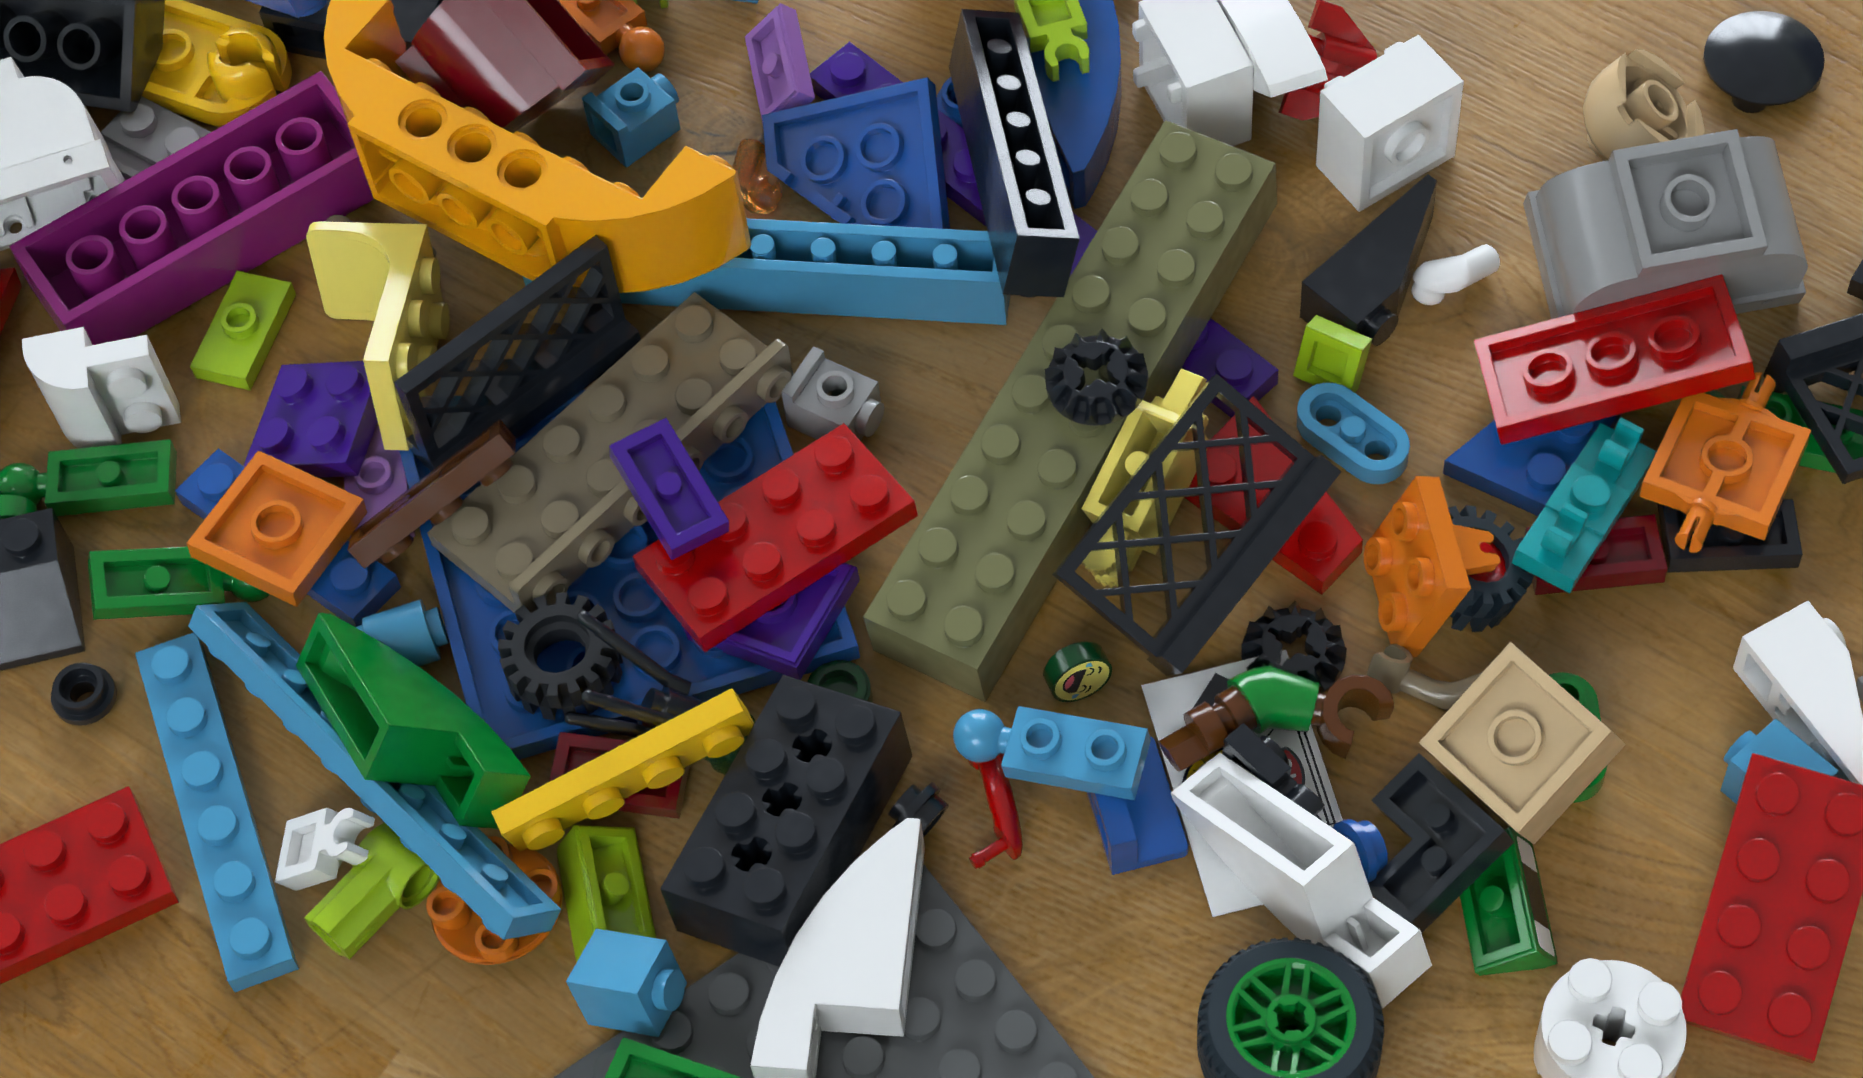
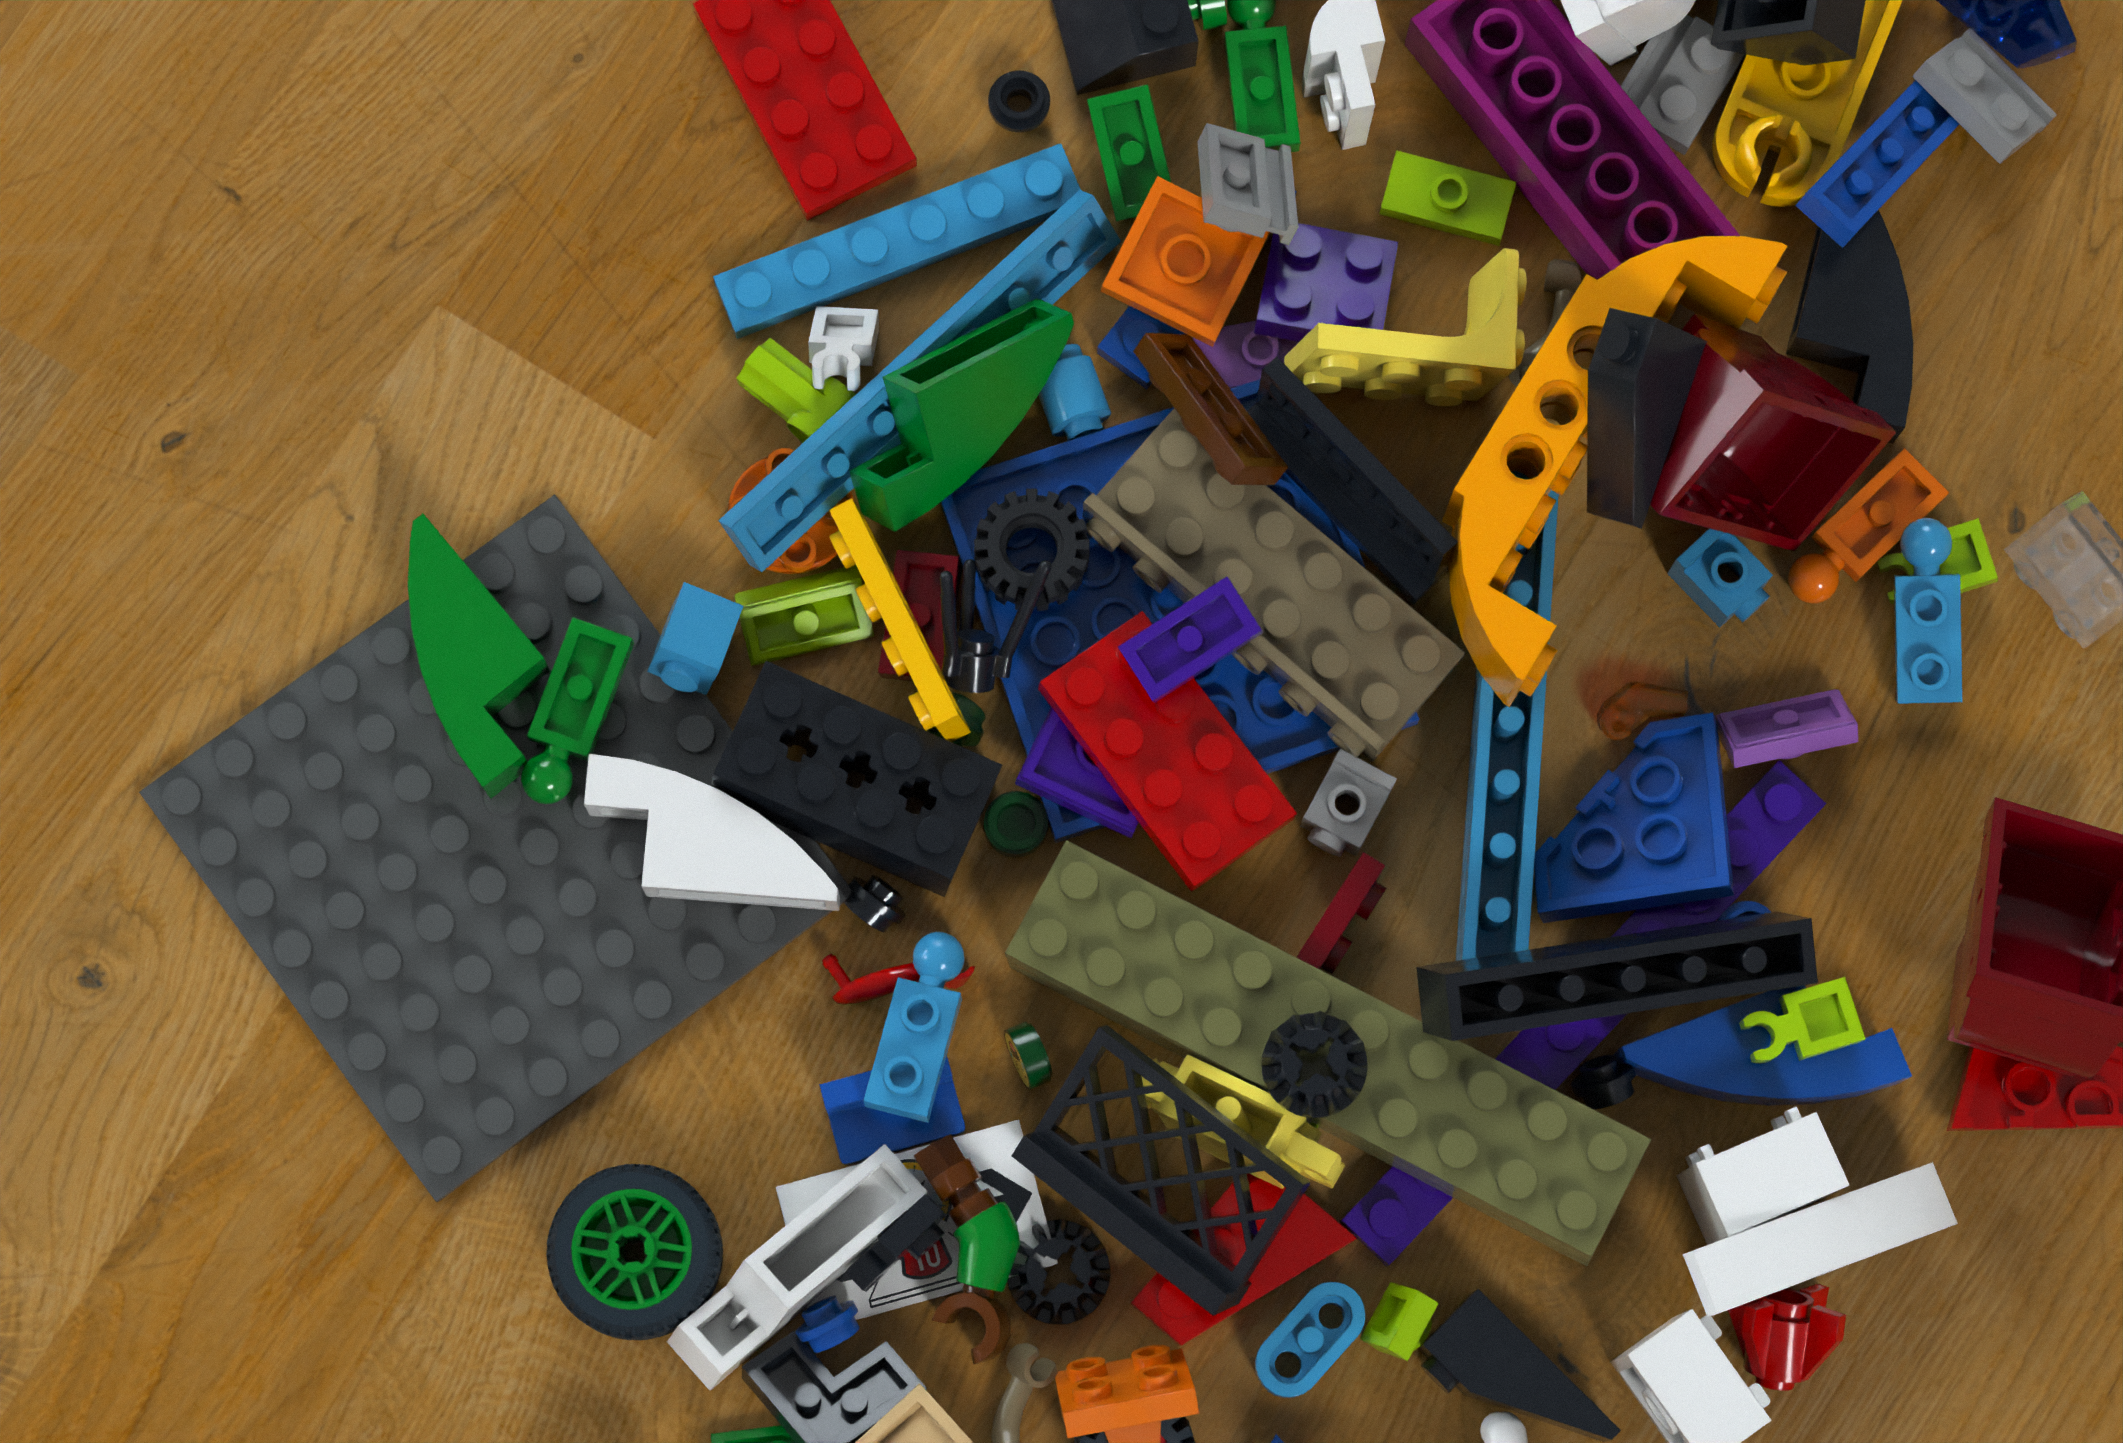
camera: 80 degrees right, 20 degrees up
(207, 465) = (1246, 184): none -> light grey plate
(489, 82) = (1634, 407): none -> black slope
(933, 402) = (1355, 897): none -> dark red plate
(1098, 198) = (1604, 1082): none -> black plate

